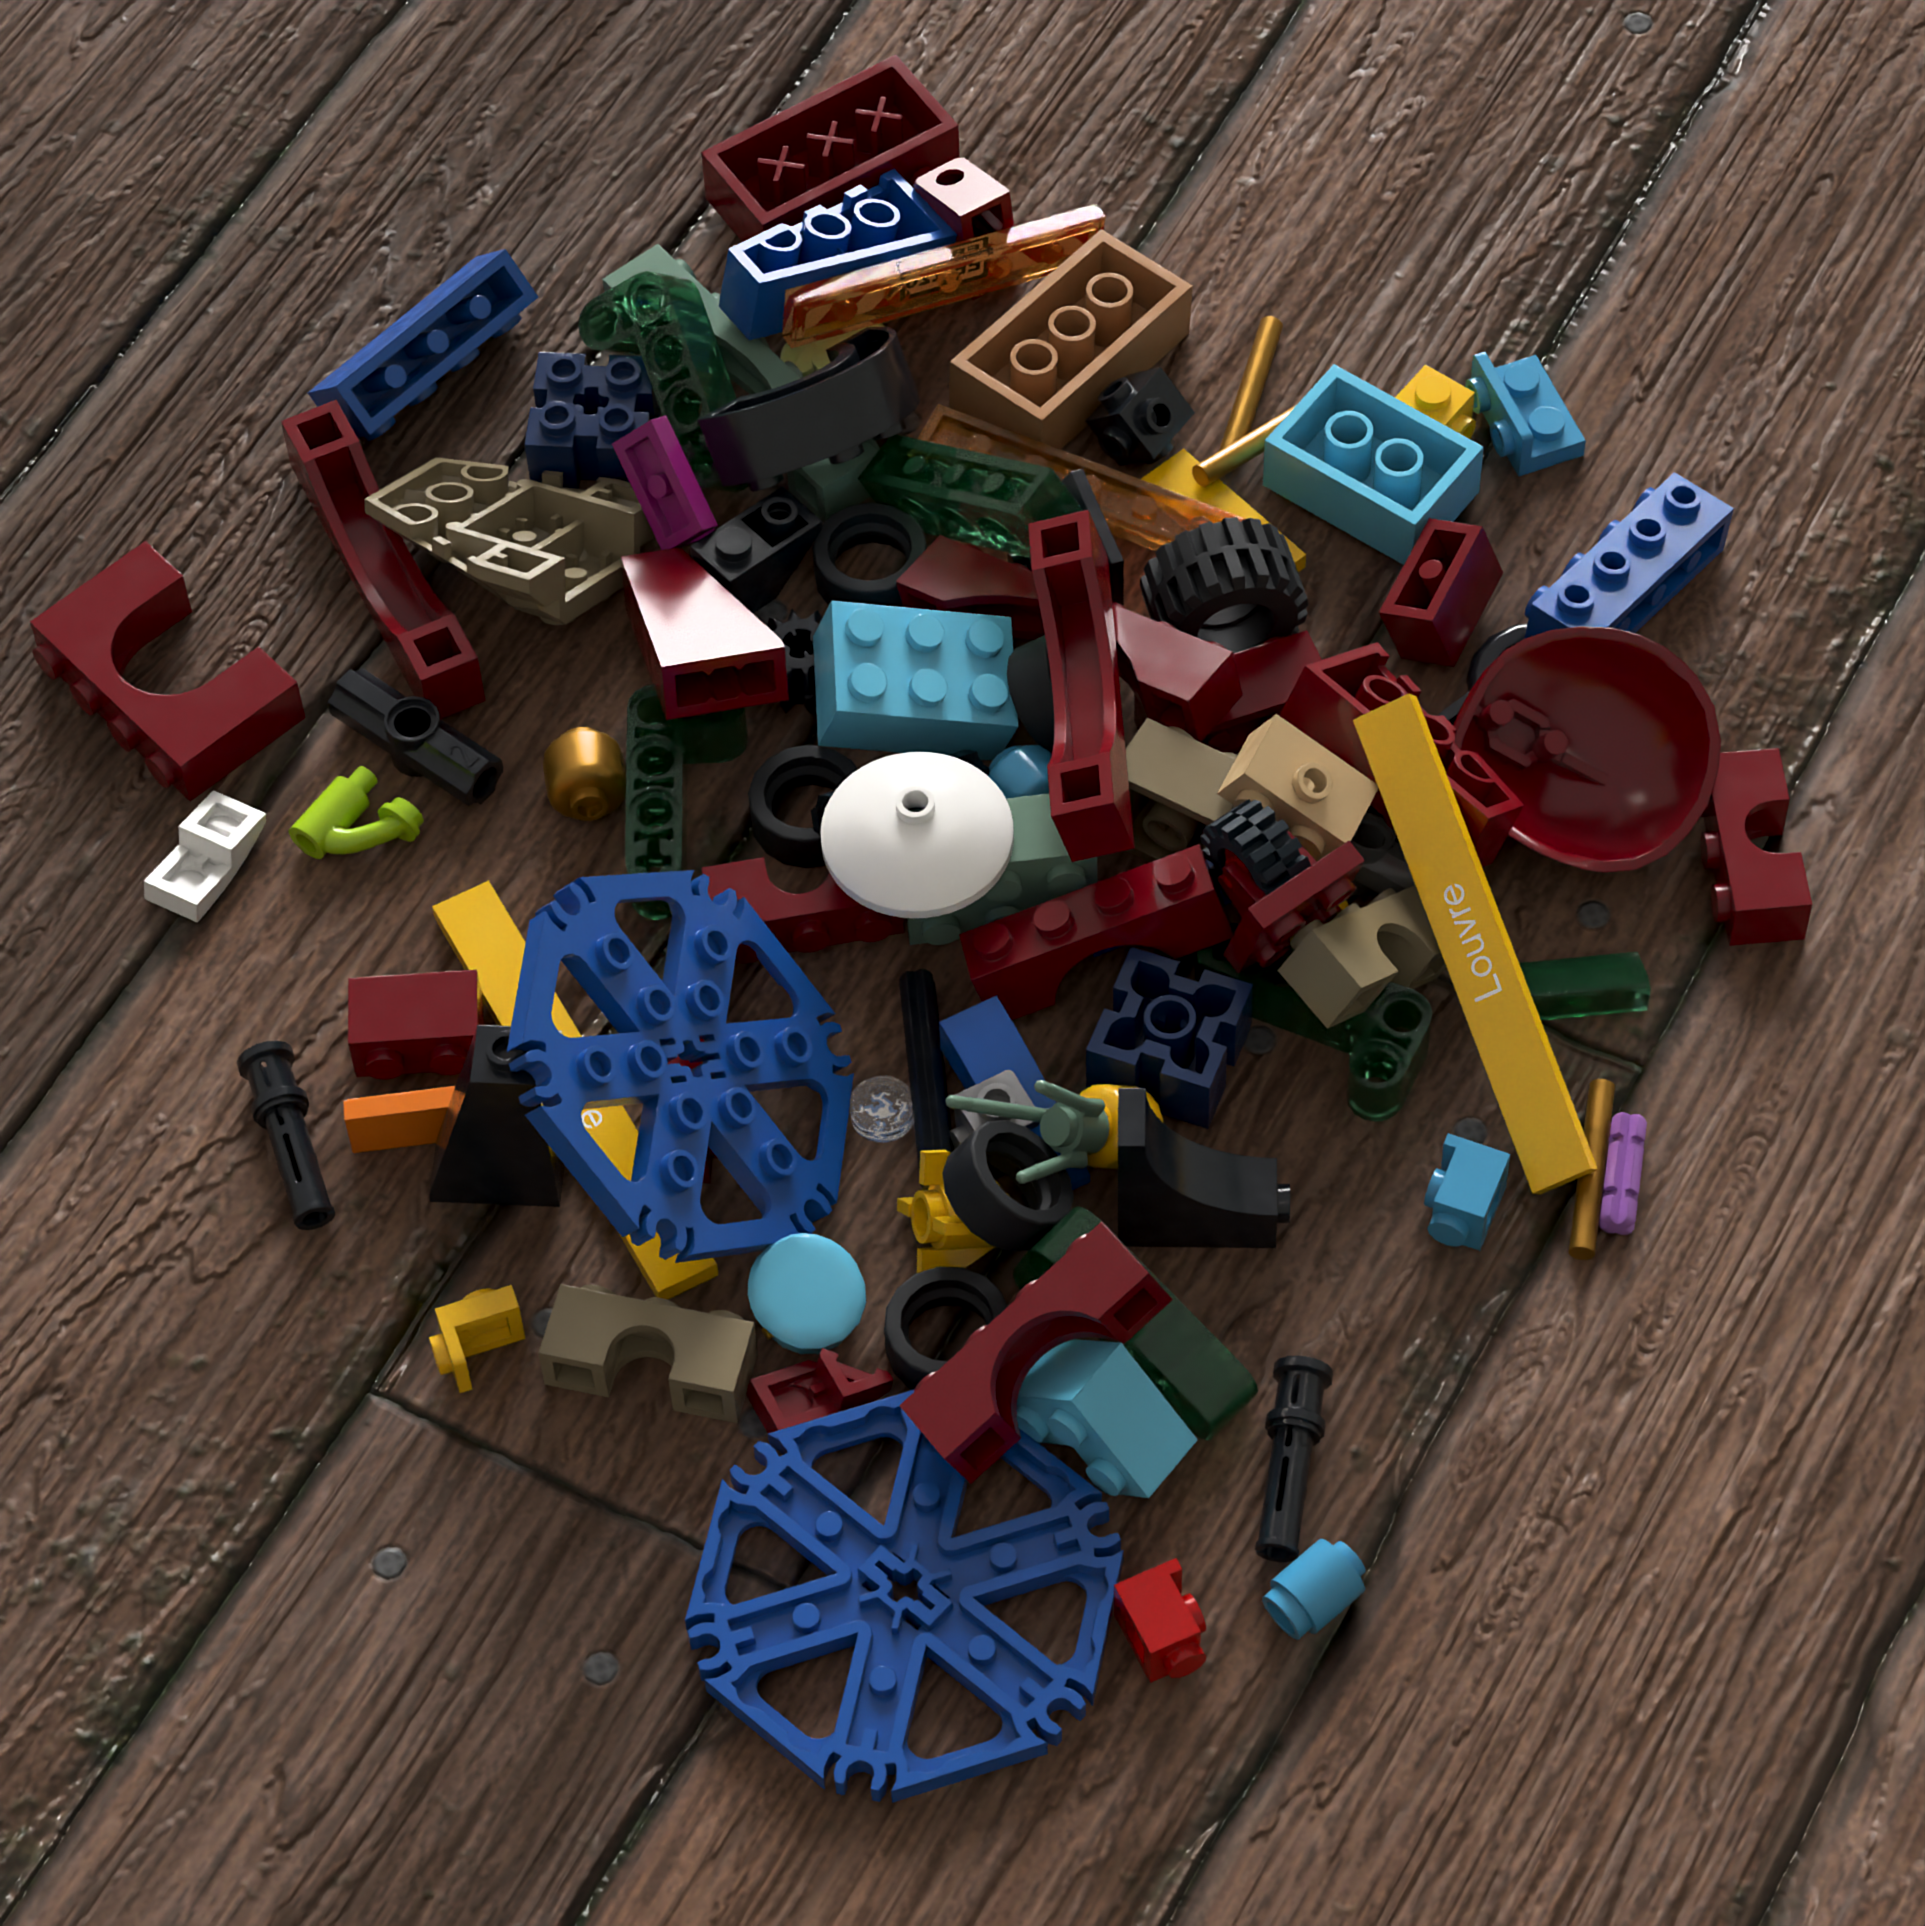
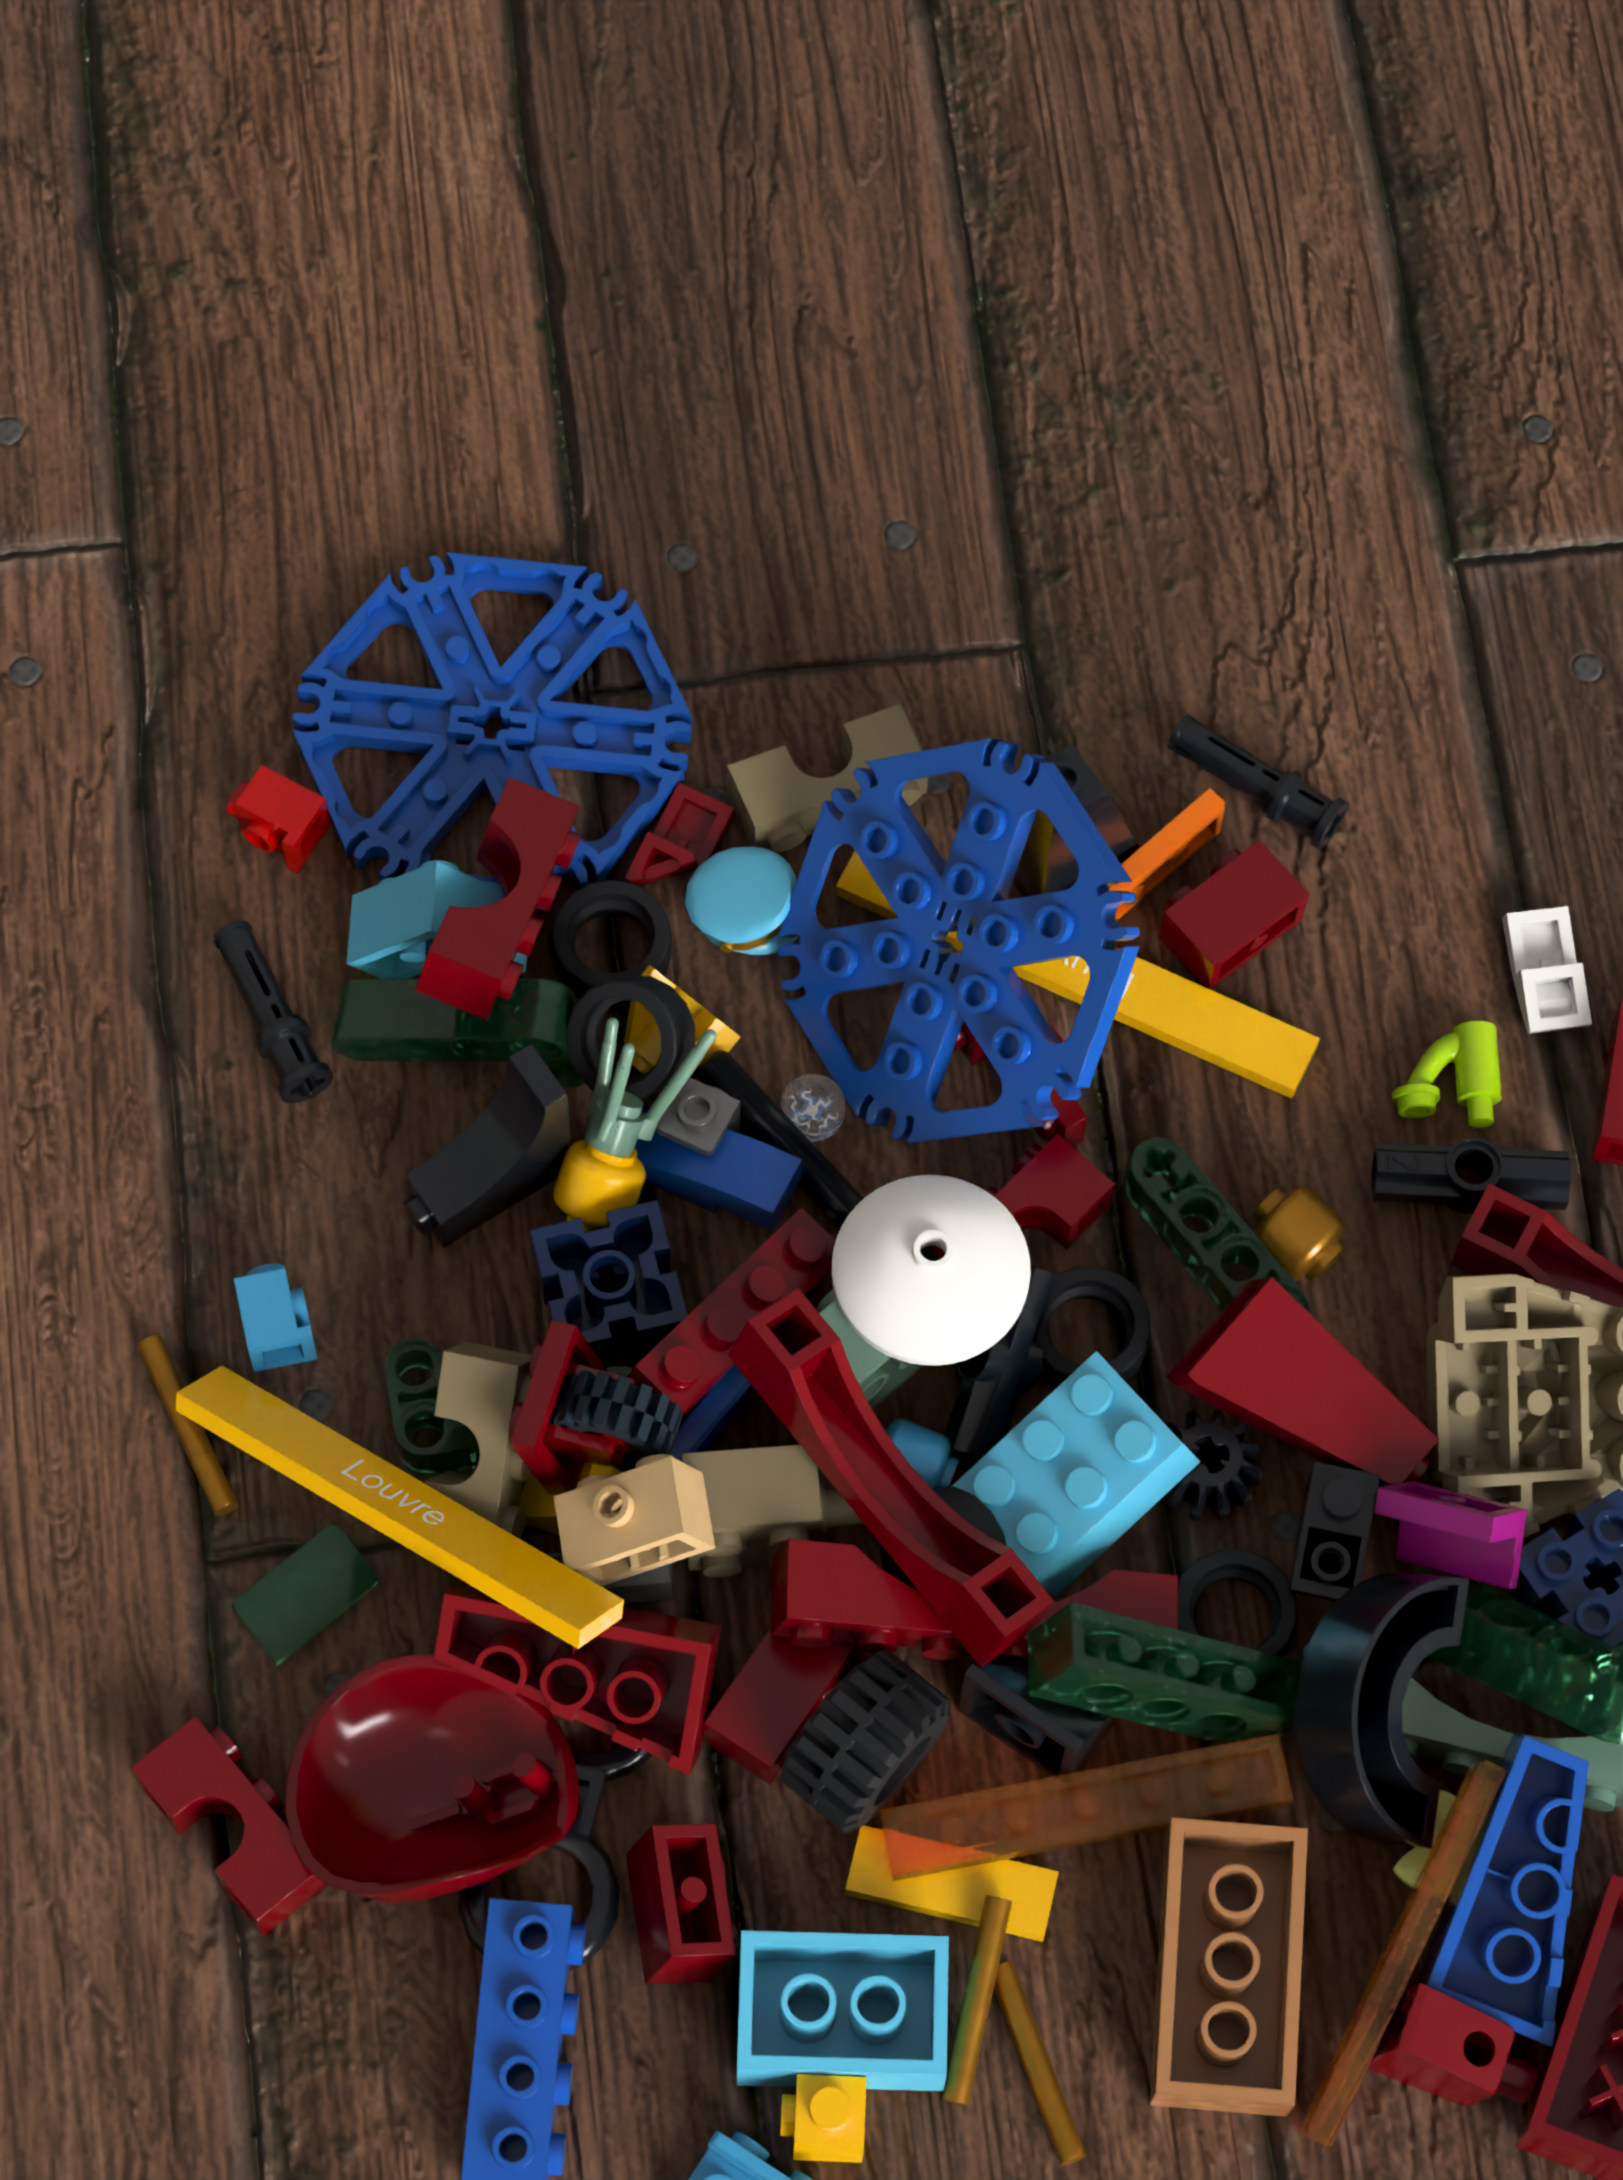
camera: 140 degrees right, 10 degrees up
(472, 1326) = (984, 703): yellow bracket -> none
(1139, 417) = (1103, 1925): black brick -> none
(1315, 1588) = (180, 917): dark azure brick -> none
(1623, 1173) = (157, 1433): medium lavender axle -> none

